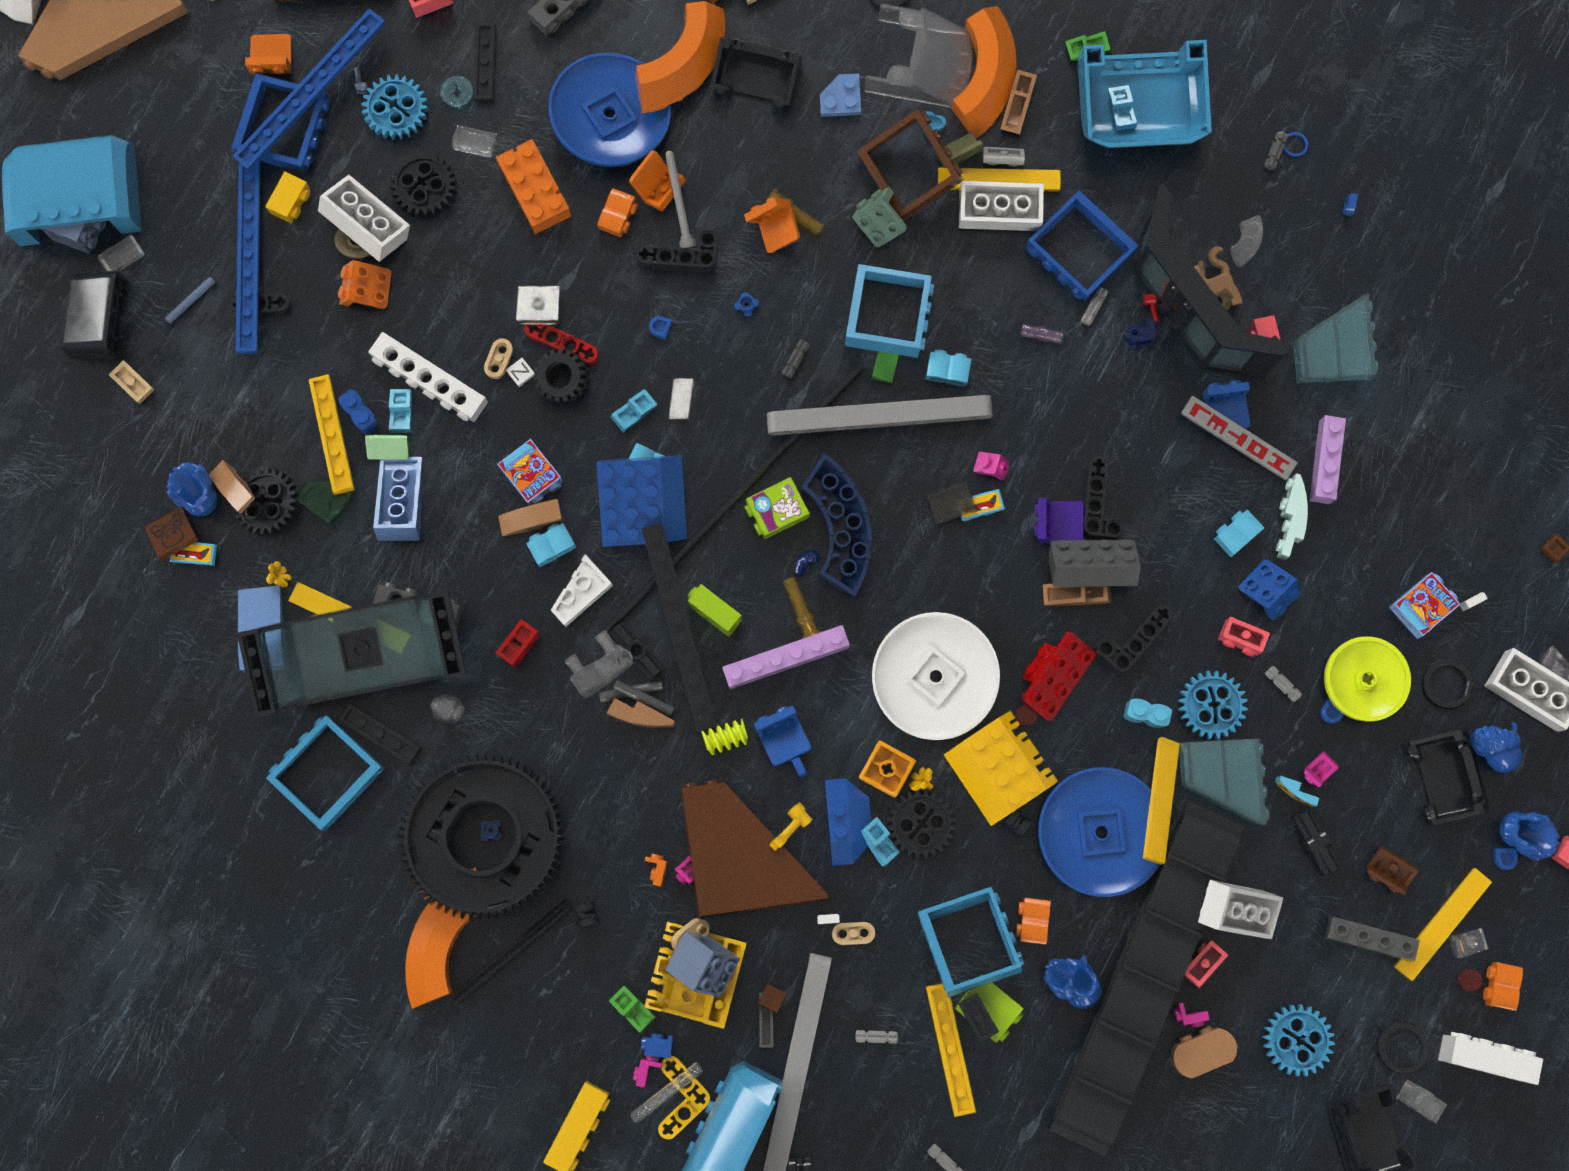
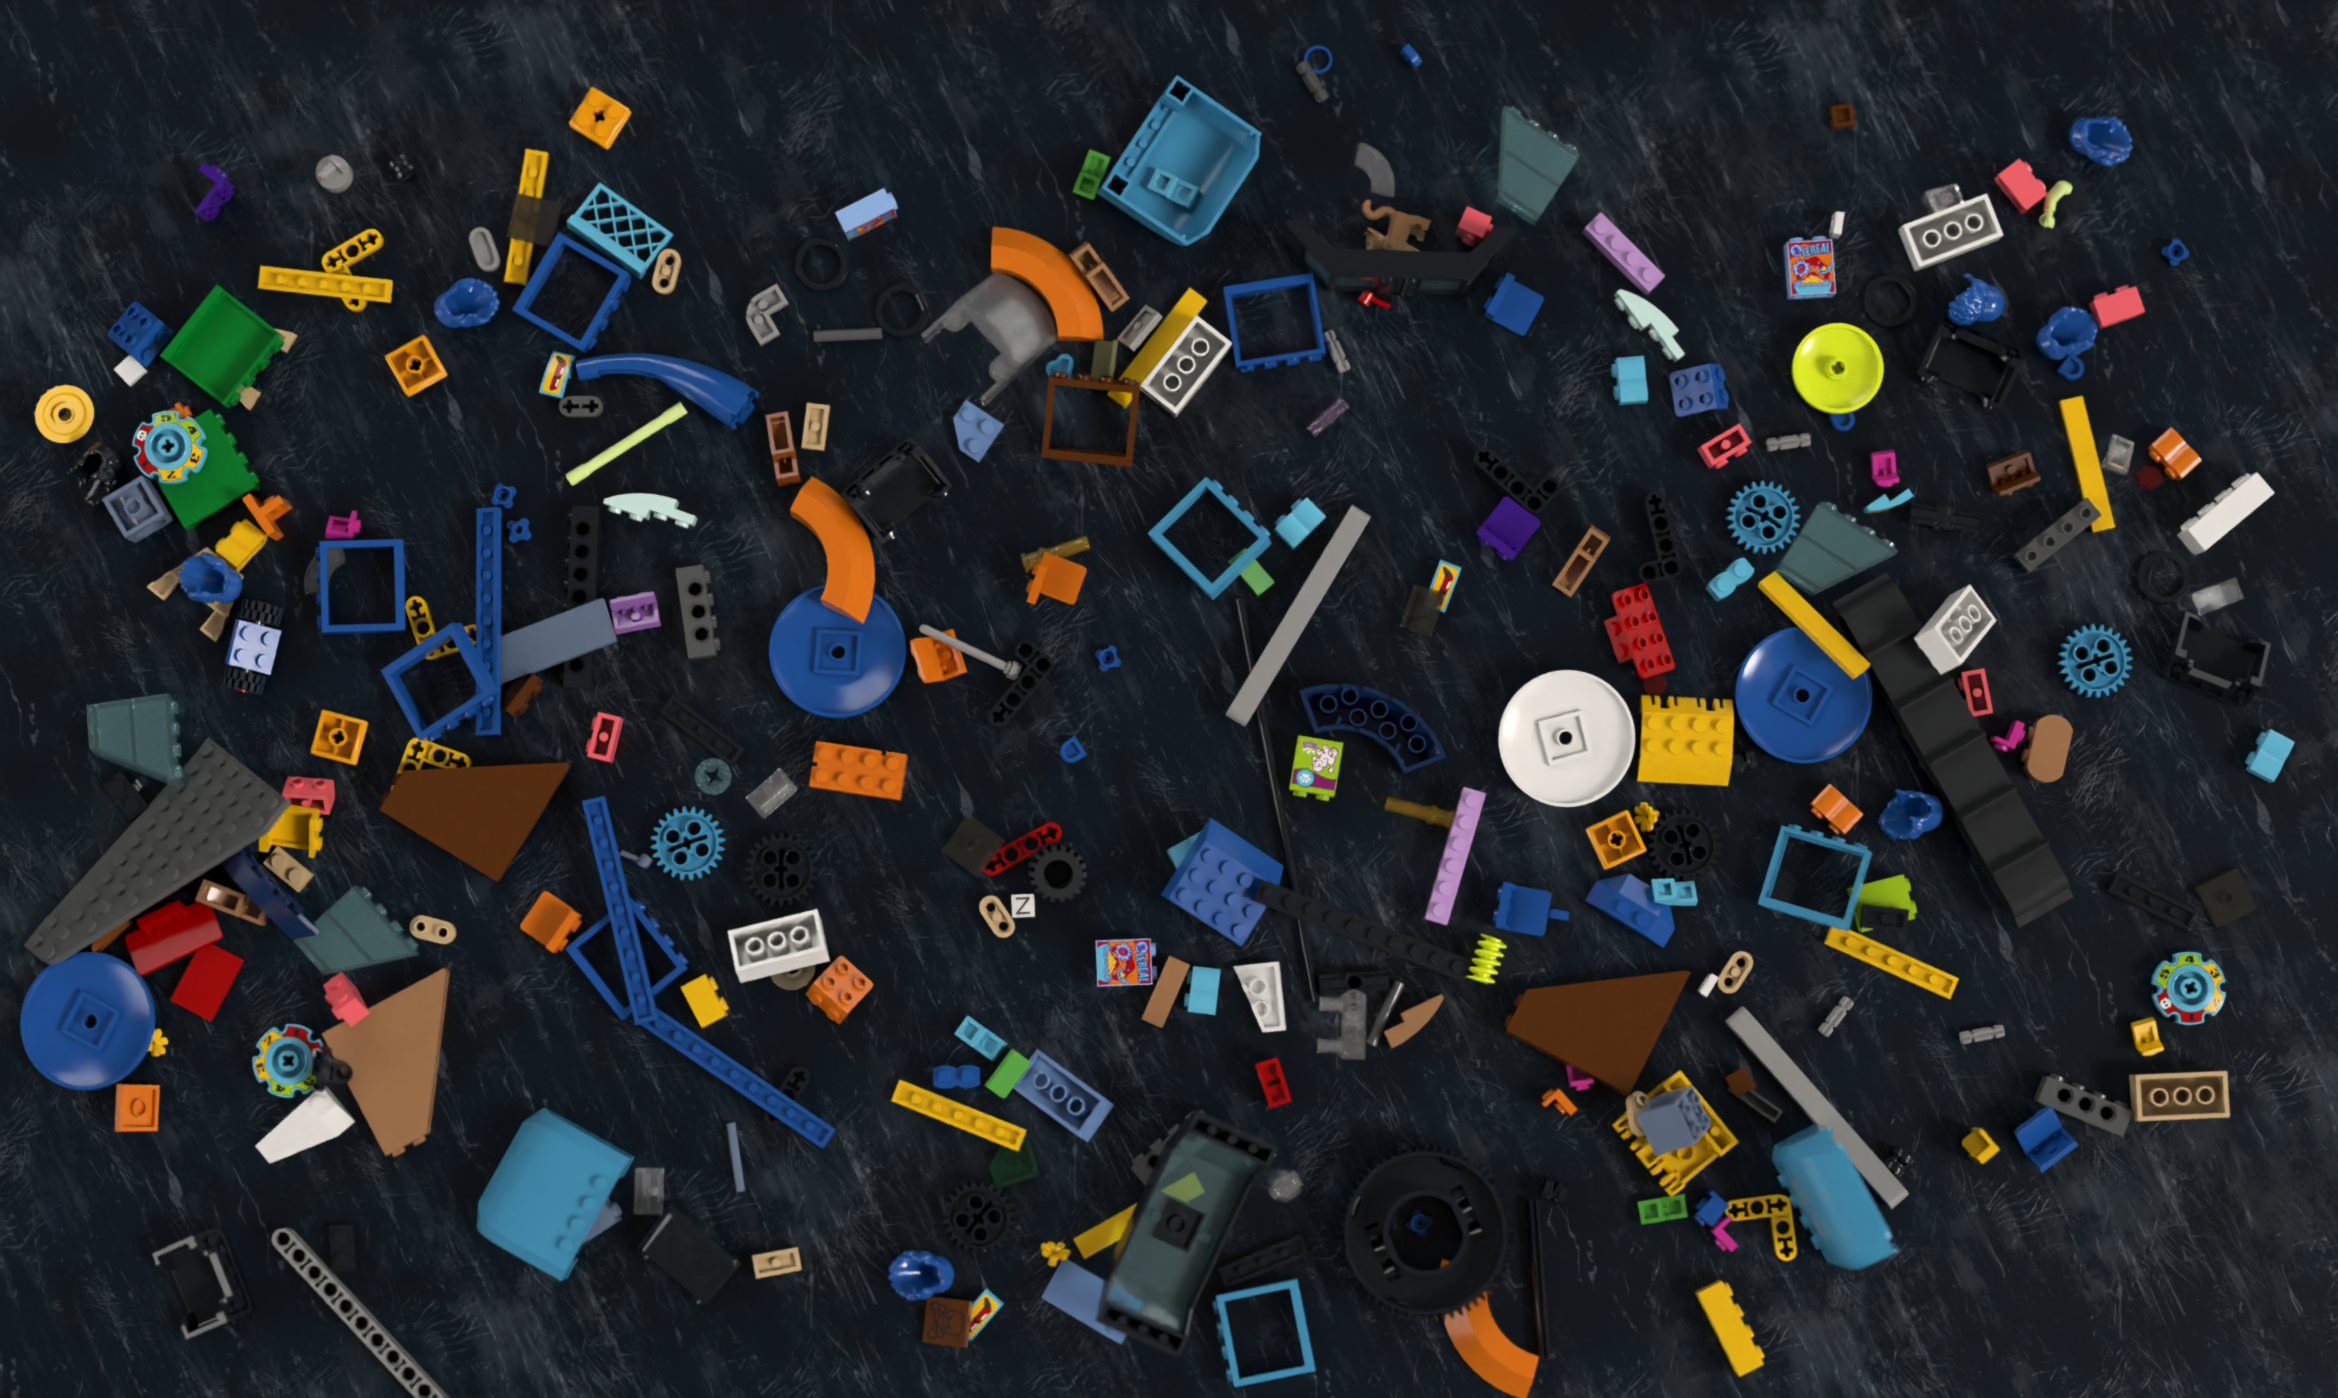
camera: 60 degrees left, 5 degrees up
(232, 486) = (947, 1237): medium nougat slope -> none
(386, 346) = (912, 1007): white brick -> none
(617, 213) = (938, 712): orange brick -> none
(633, 411) = (1132, 829): medium azure slope -> none
(643, 698) = (1400, 1006): dark grey piece -> none
(666, 1092) = (1755, 1230): clear axle -> none
(681, 399) = (1153, 779): clear smoke slope -> none
(714, 610) = (1369, 888): lime brick -> none
(795, 359) = (1190, 651): dark grey axle -> none
(799, 818) = (1602, 946): yellow brick -> none
(804, 559) = (1378, 775): clear blue arm -> none
(878, 218) = (1117, 484): sand green bracket -> none
(991, 465) = (1413, 550): dark pink bracket -> none
(1094, 563) = (1568, 527): dark grey brick -> none
(1141, 335) = (1390, 334): clear blue leg -> none
(1238, 438) = (1547, 316): light grey tile -> none

